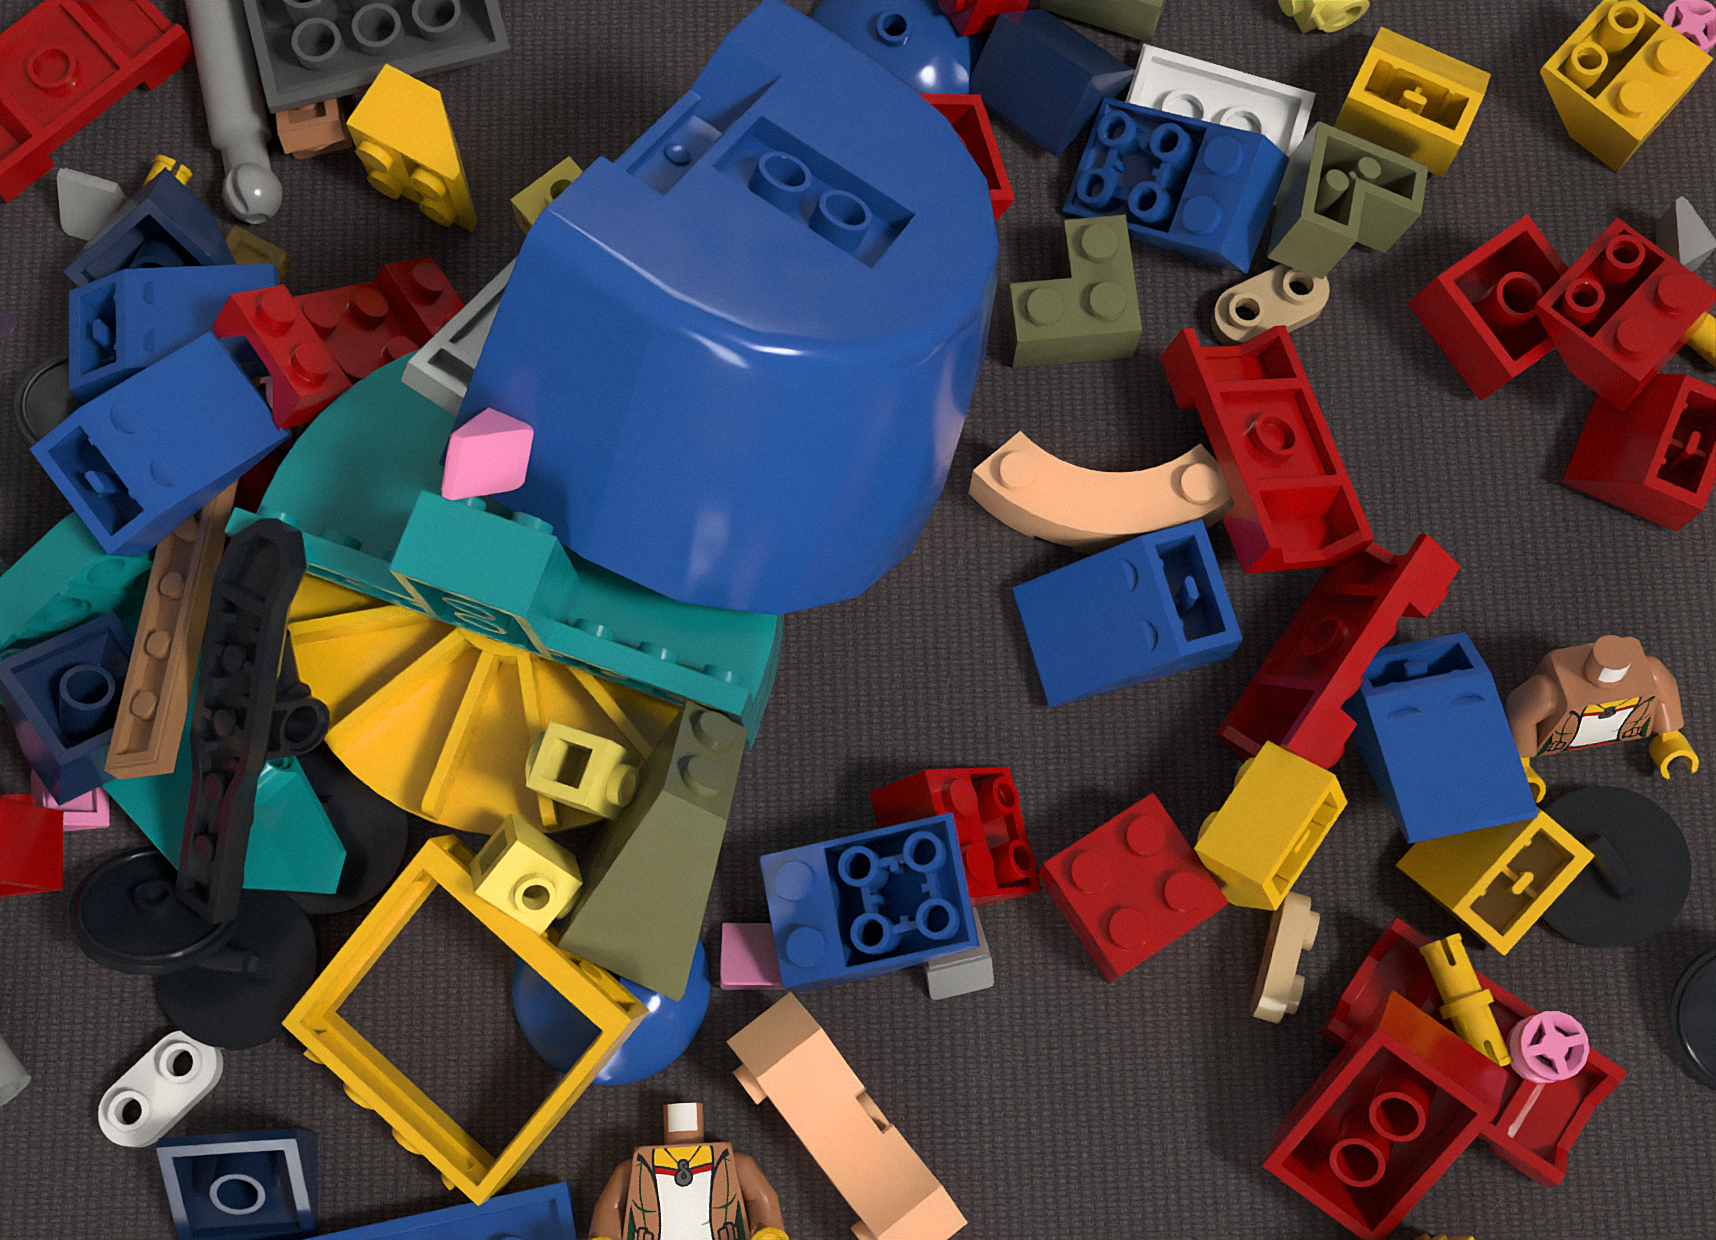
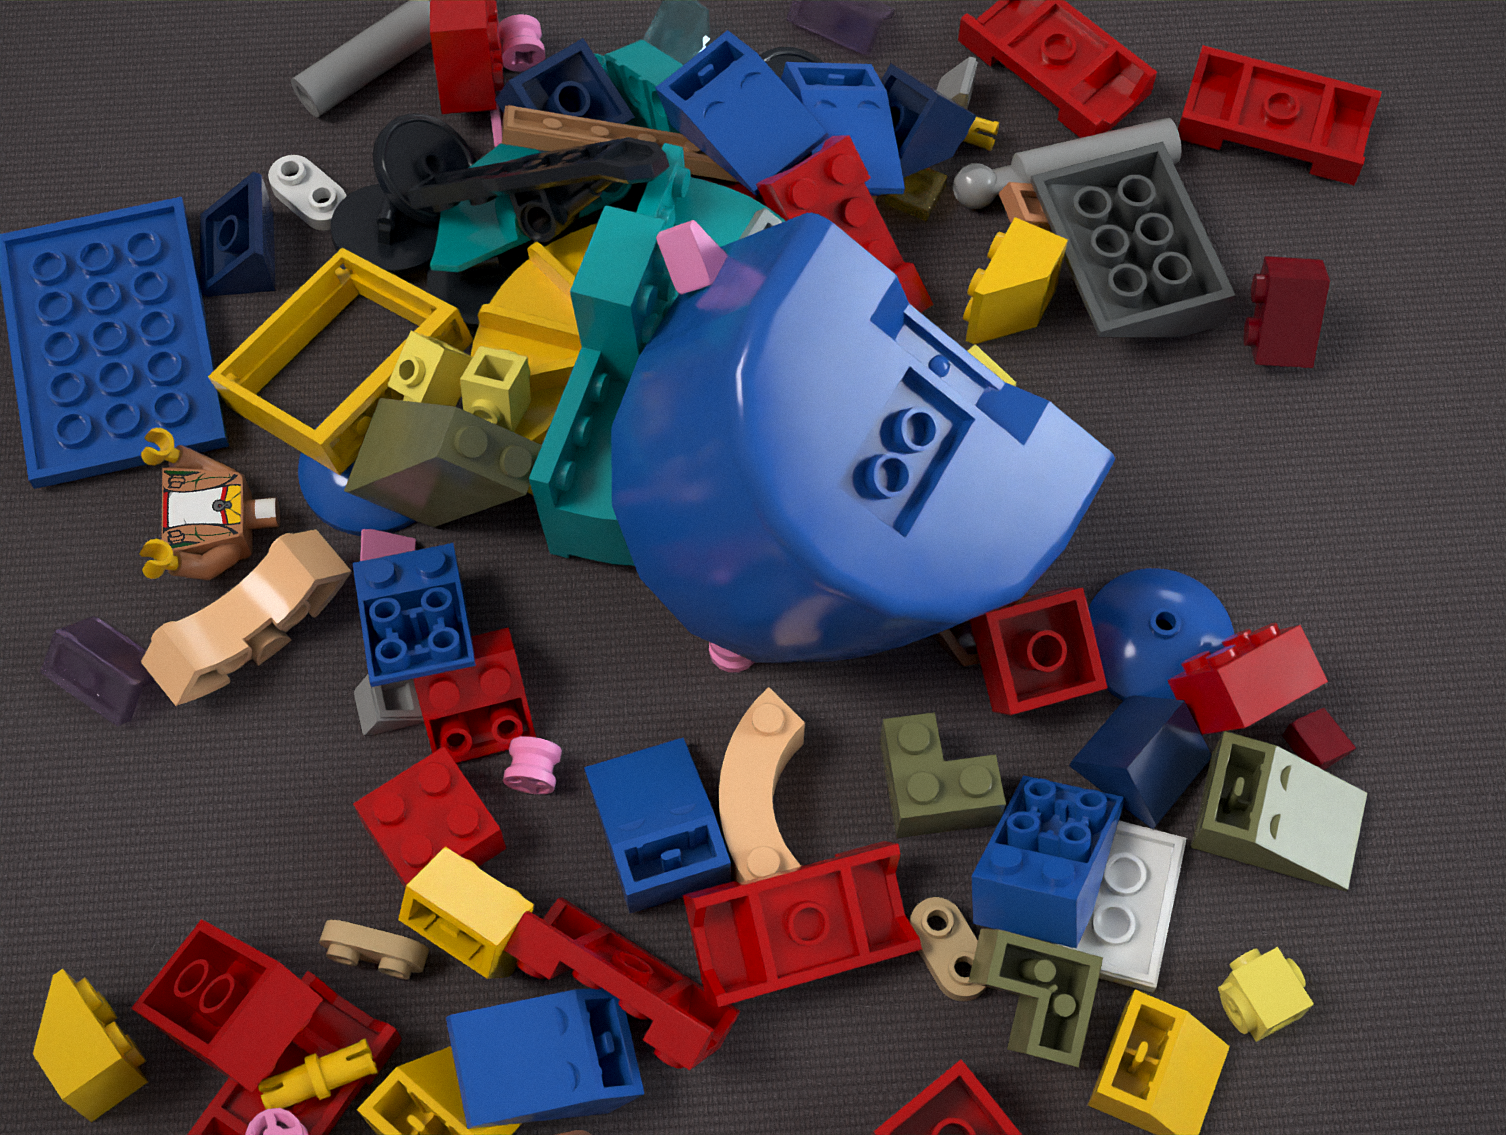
camera: 90 degrees right, 10 degrees down
(1050, 766) = (532, 765): none -> bright pink wheel

